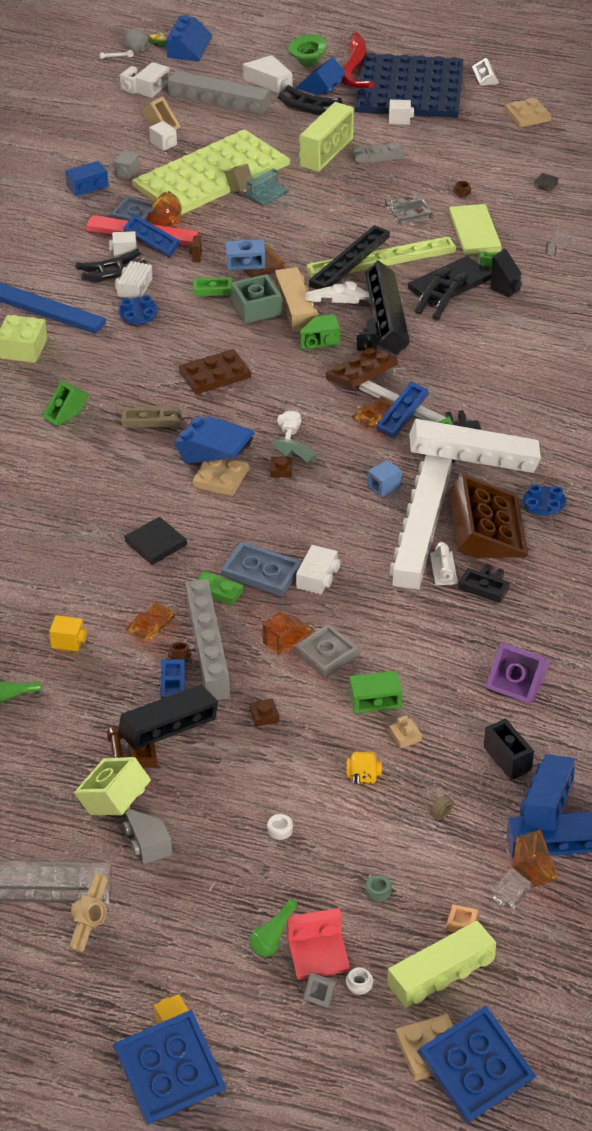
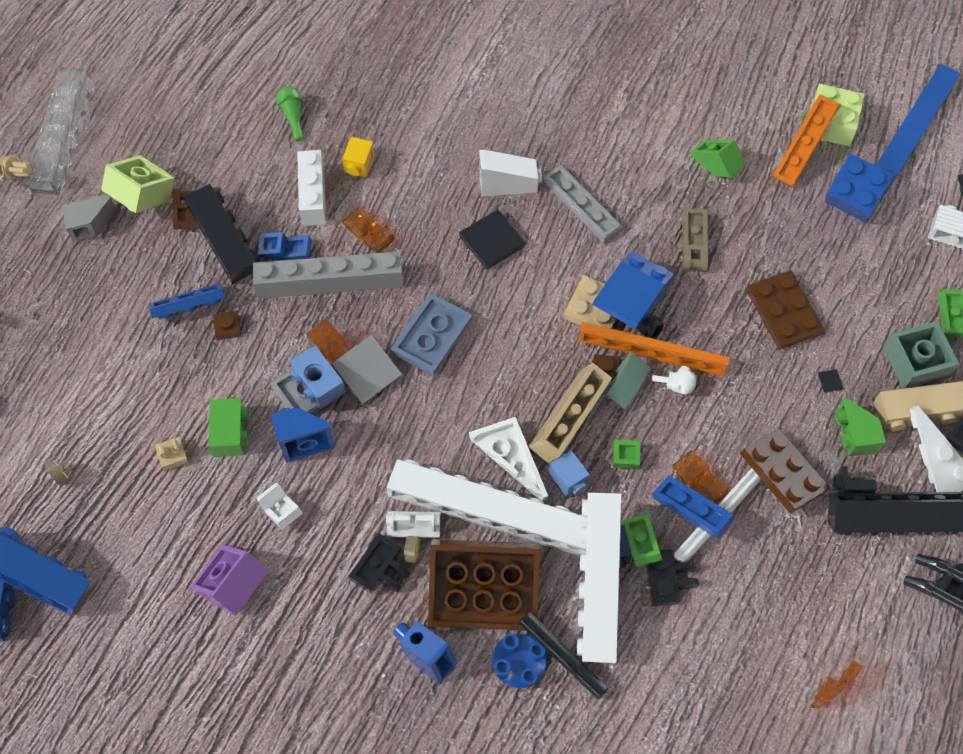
camera: 95 degrees right, 20 degrees up
(54, 348) = (806, 140): none -> orange tile
(91, 529) = (507, 174): none -> white slope
(101, 323) = (858, 188): none -> blue brick
(106, 661) = (311, 188): none -> white brick
(112, 487) = (582, 203): none -> light grey tile
(138, 310) = (900, 232): blue dish -> none
(179, 650) = (321, 247): reddish brown plate -> none
(222, 589) = (412, 293): bright green plate -> none
(243, 740) = (187, 301): none -> blue plate
(262, 438) = (653, 349): none -> orange tile
(276, 351) = (830, 380): none -> black sticker
(280, 826) = (78, 329): white tile -> none
(304, 605) = (366, 369): none -> light grey tile
(317, 569) = (421, 388): white brick -> none
(320, 628) = (312, 364): none -> medium blue brick
(331, 476) = (570, 413): none -> tan brick
(360, 450) = (626, 454): none -> bright green plate
(363, 768) = (127, 405): yellow head -> none
(365, 516) = (509, 449): none -> white wing
(380, 633) = (301, 433): none -> blue slope
(447, 646) = (279, 506): none -> white bracket
(467, 560) = (412, 549): none -> dark tan tile
(508, 748) = (110, 545): black brick -> none
(523, 344) = (832, 688): none -> clear orange slope
(534, 476) = (563, 655): none -> black axle
(553, 541) = (426, 650): none -> blue torso

